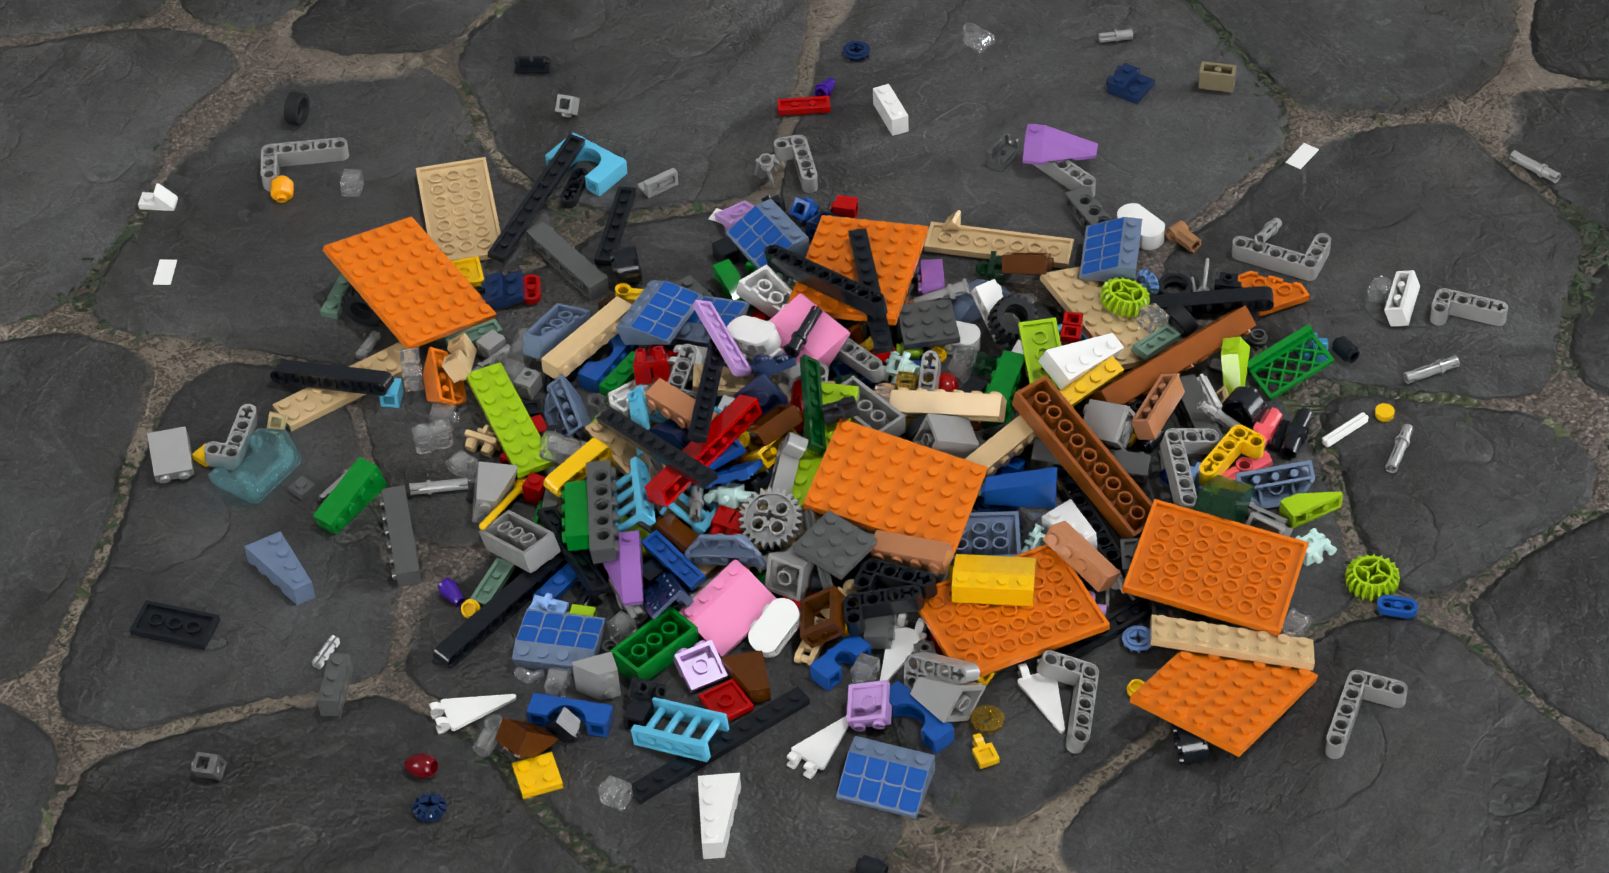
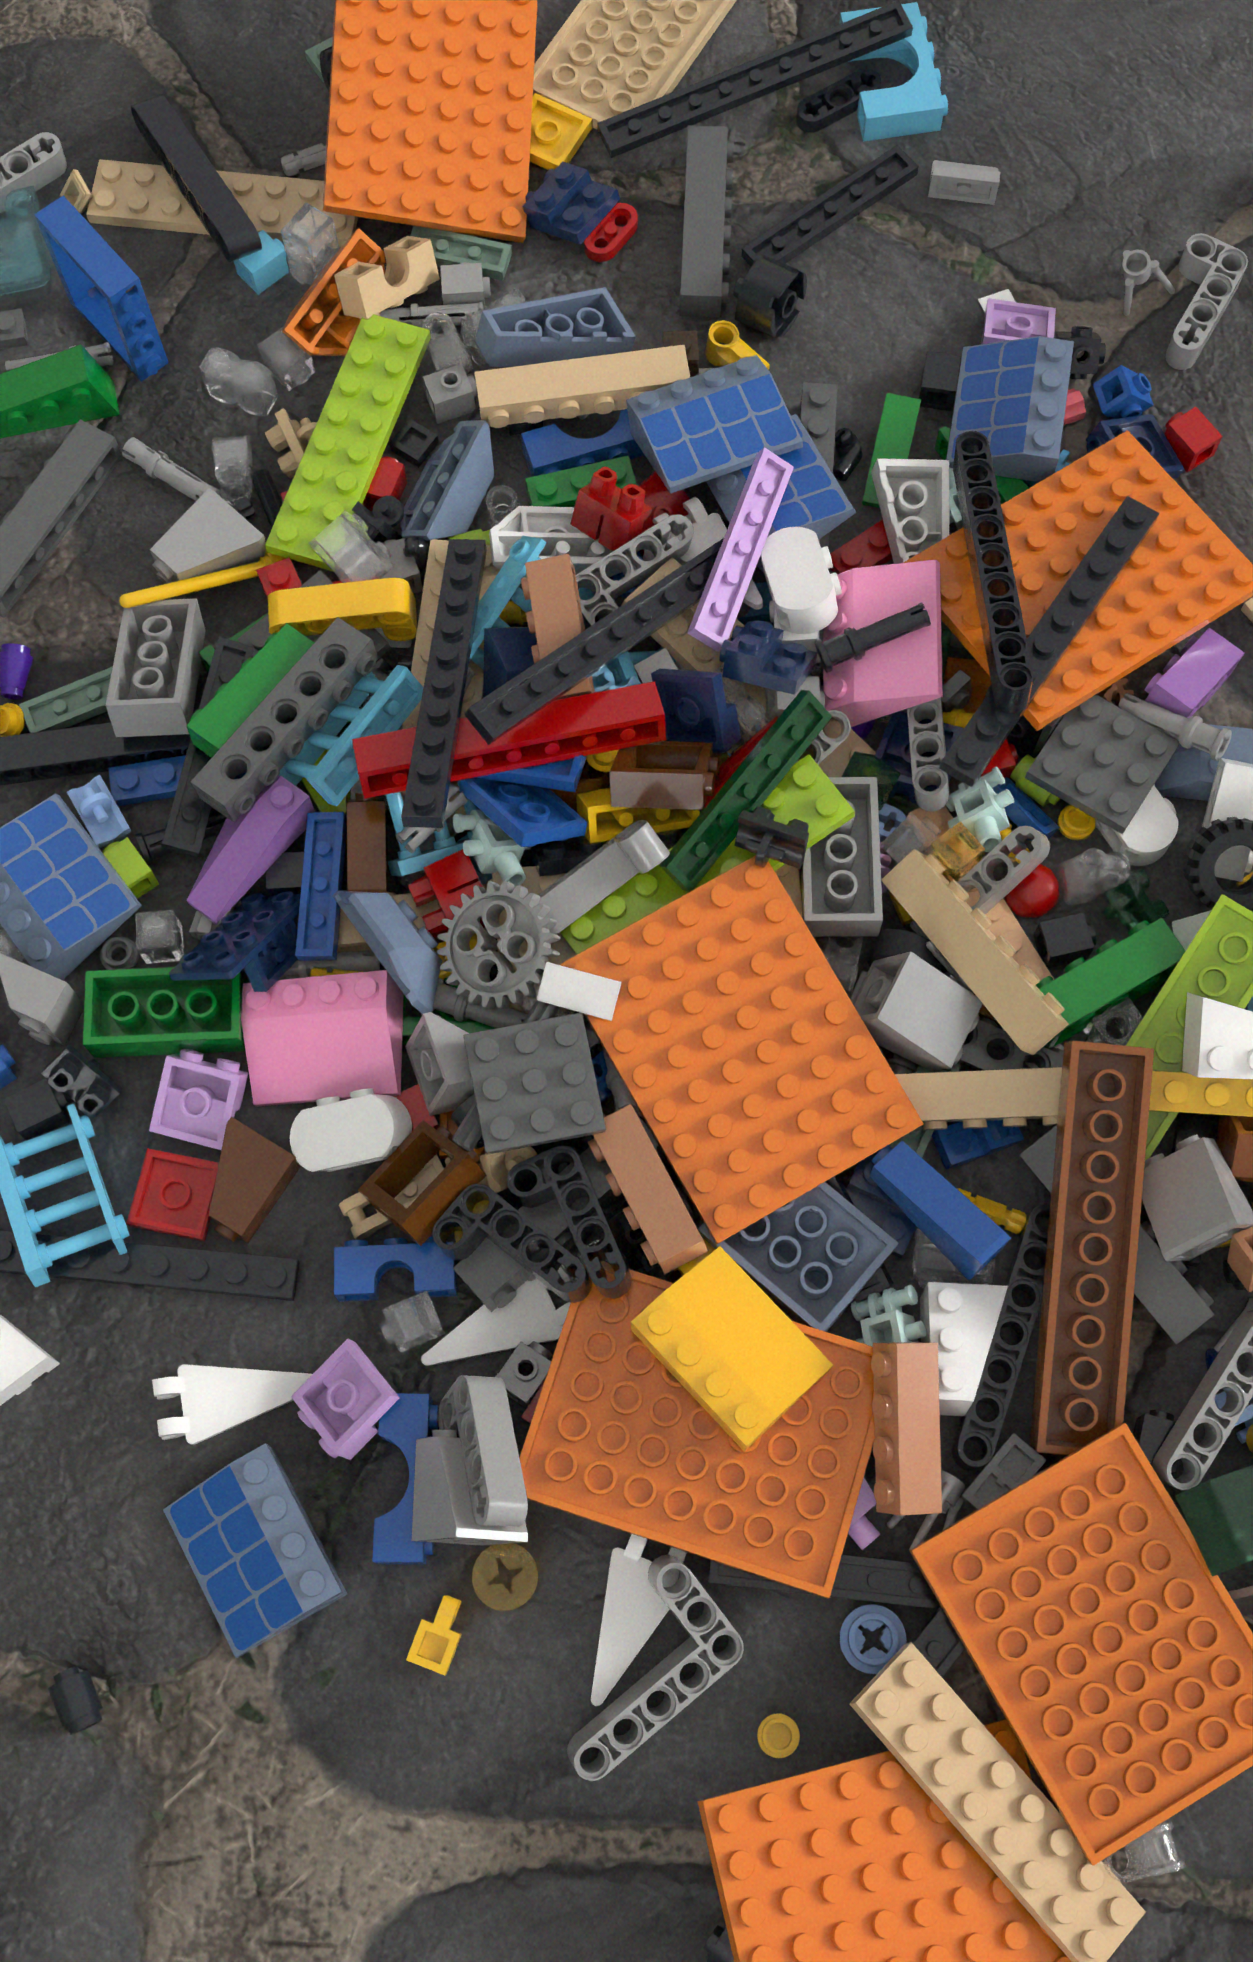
camera: 40 degrees right, 25 degrees up
(345, 408) = (98, 285): none -> blue window
(820, 504) = (579, 991): none -> white sticker

